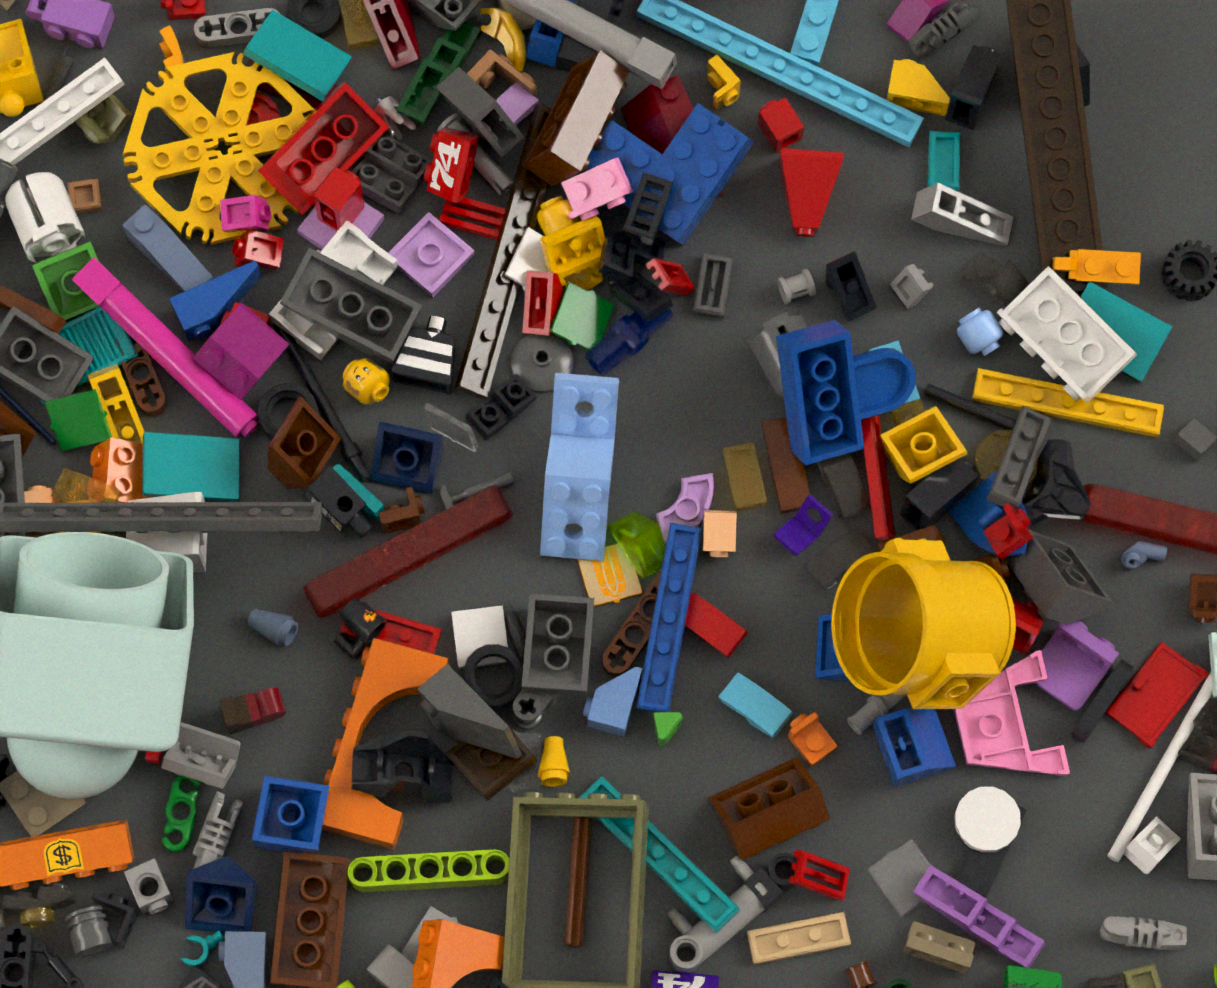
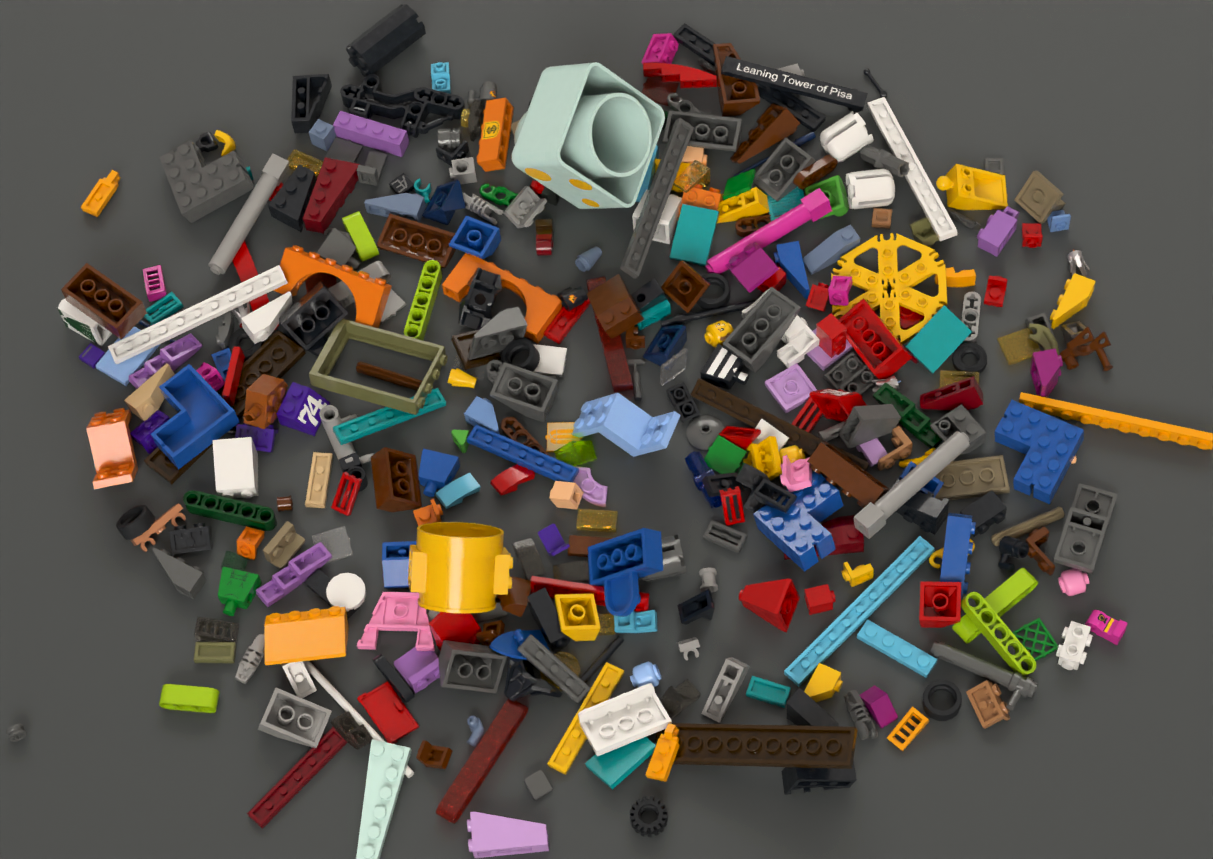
camera: 115 degrees right, 10 degrees down
(369, 542) = (614, 306): none -> reddish brown slope
(734, 747) = (437, 470): none -> blue torso
(1009, 532) = (505, 641): red bracket -> none
(1093, 846) = (306, 635): none -> light orange slope

